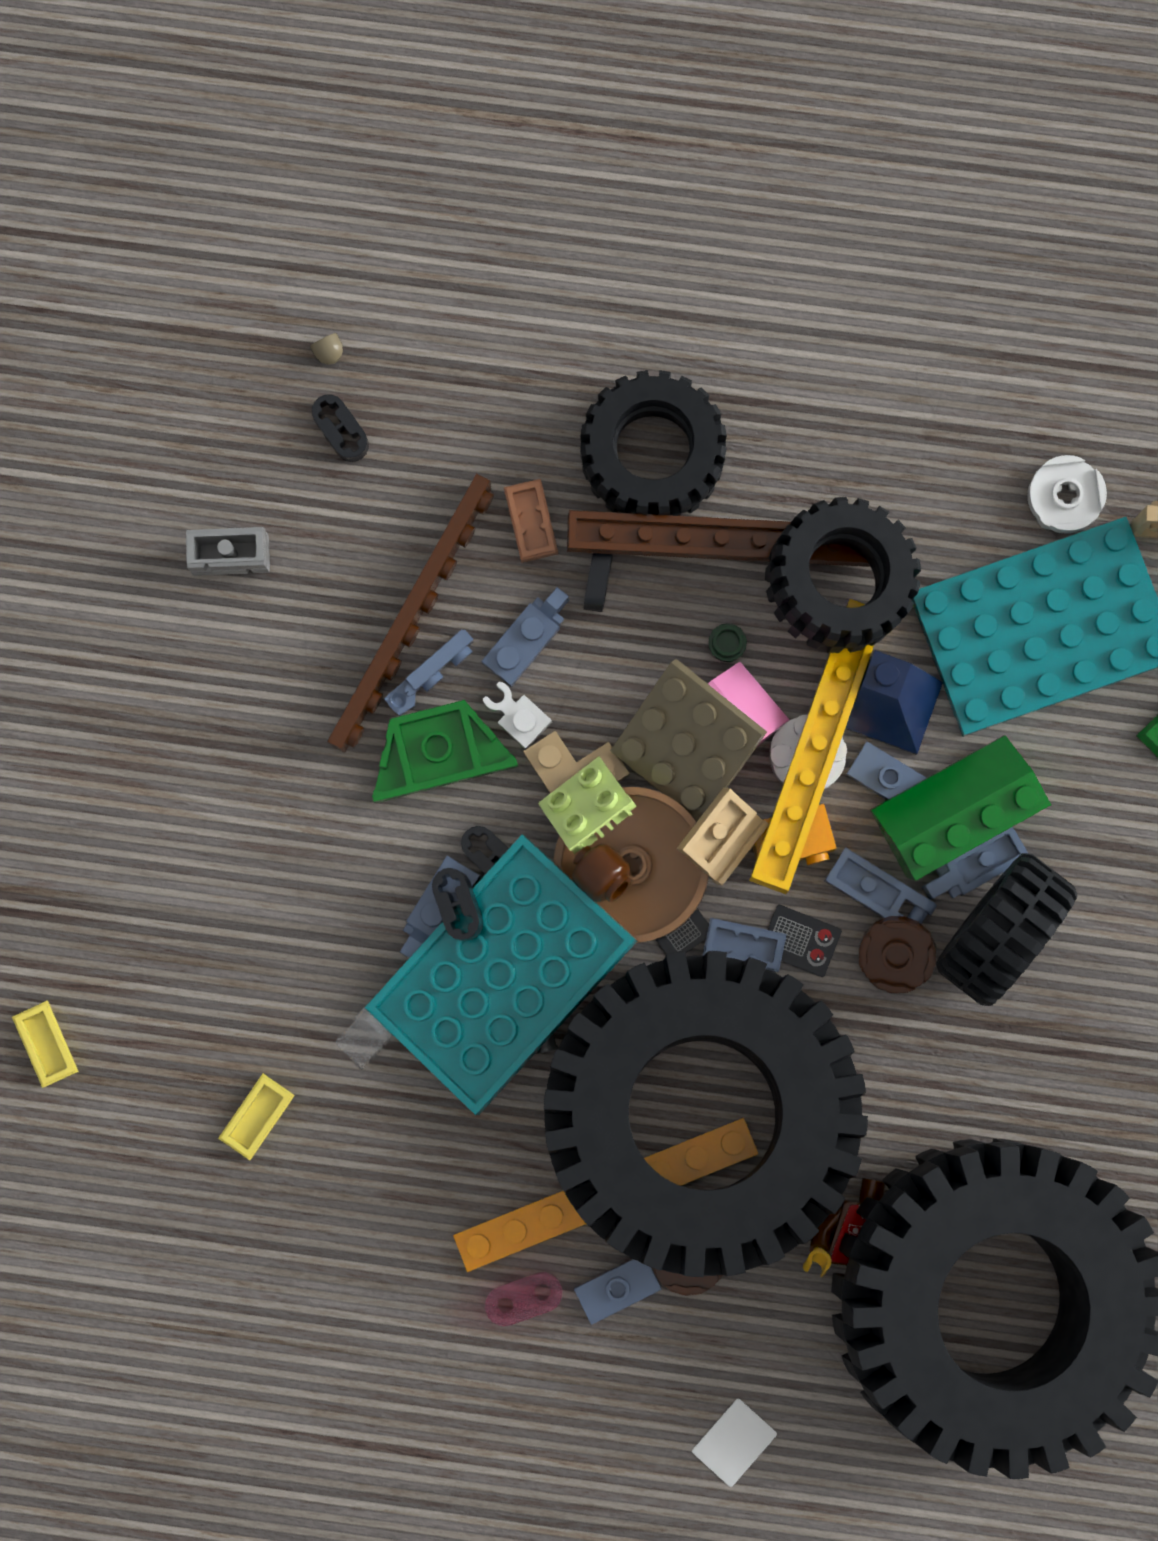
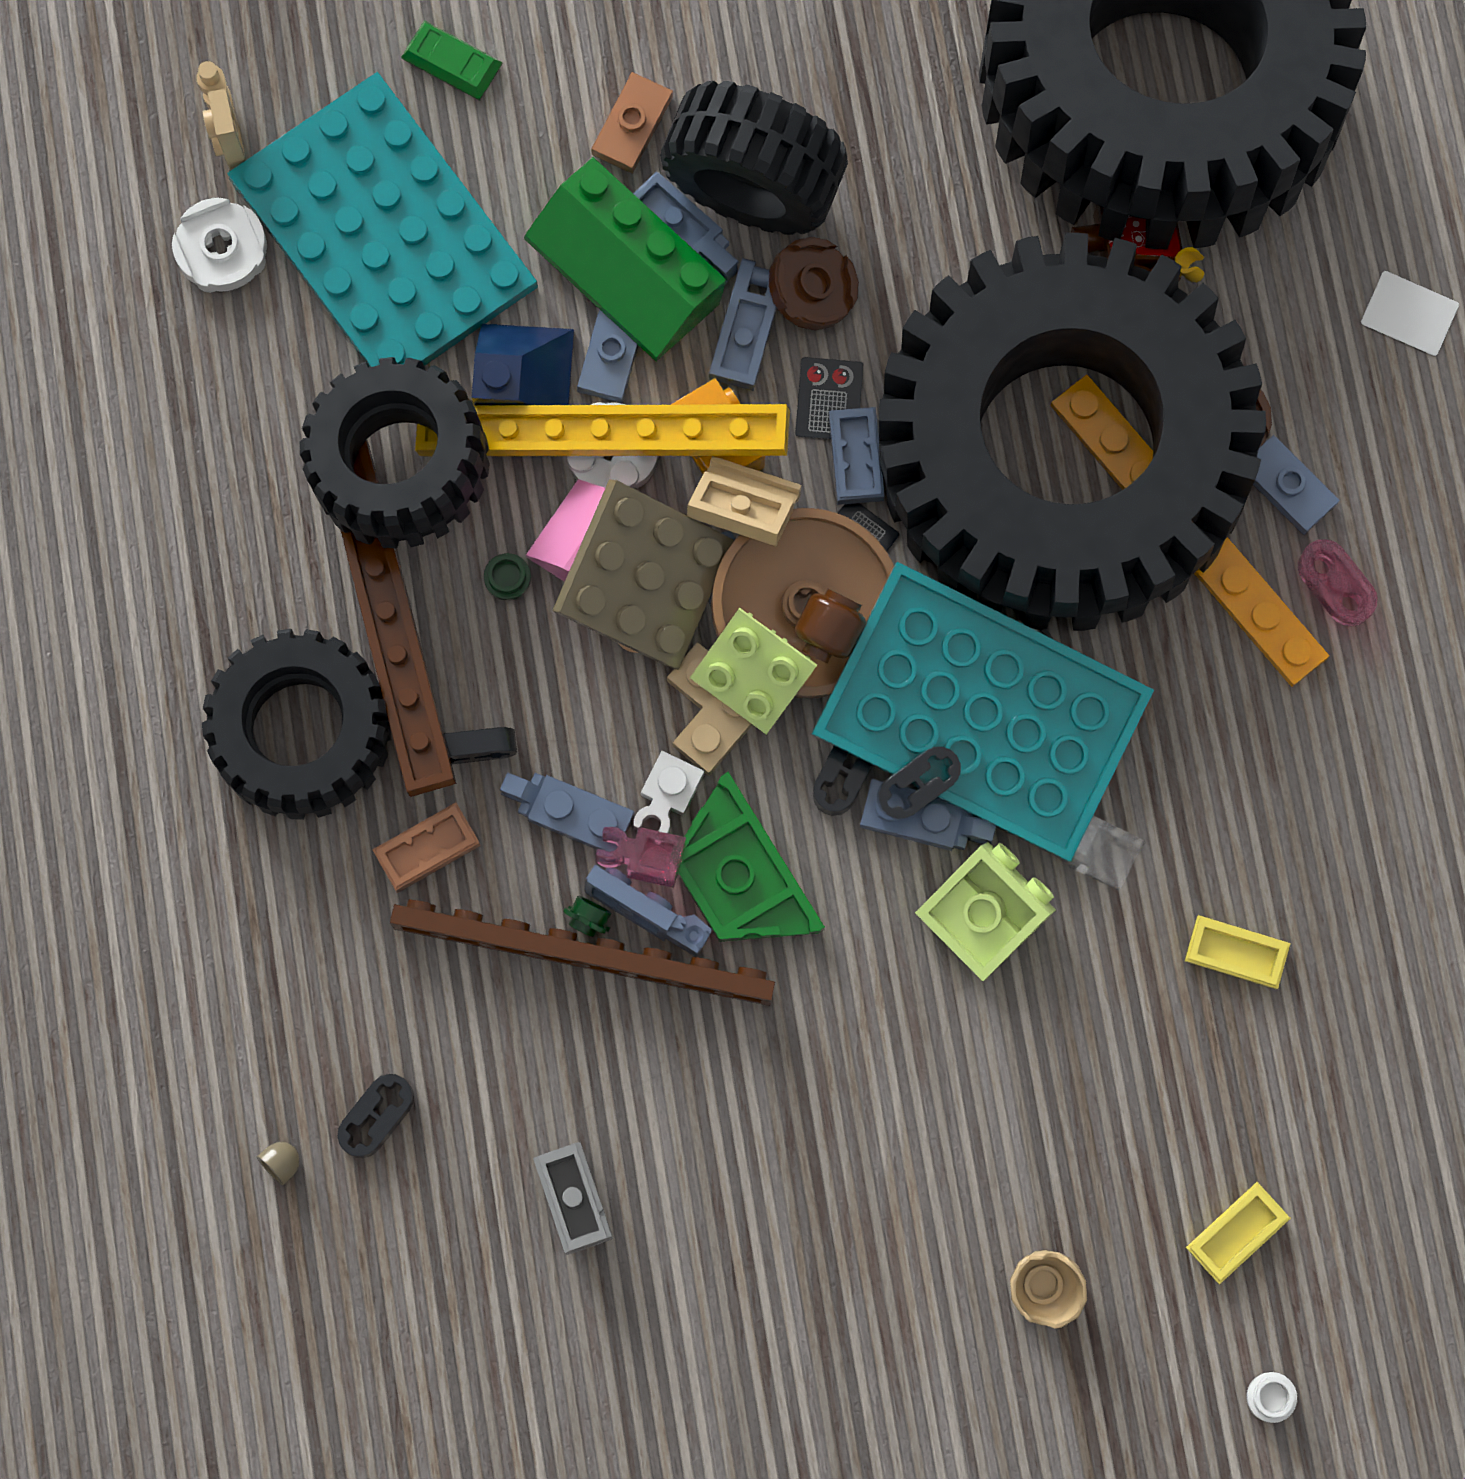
camera: 115 degrees left, 5 degrees down
(48, 884) = (1048, 1289): none -> tan hair
(348, 931) = (987, 909): none -> yellowish green plate
(438, 626) = (588, 916): none -> dark green plate
(467, 683) = (649, 857): none -> clear pink plate
(1080, 852) = (632, 122): none -> nougat plate

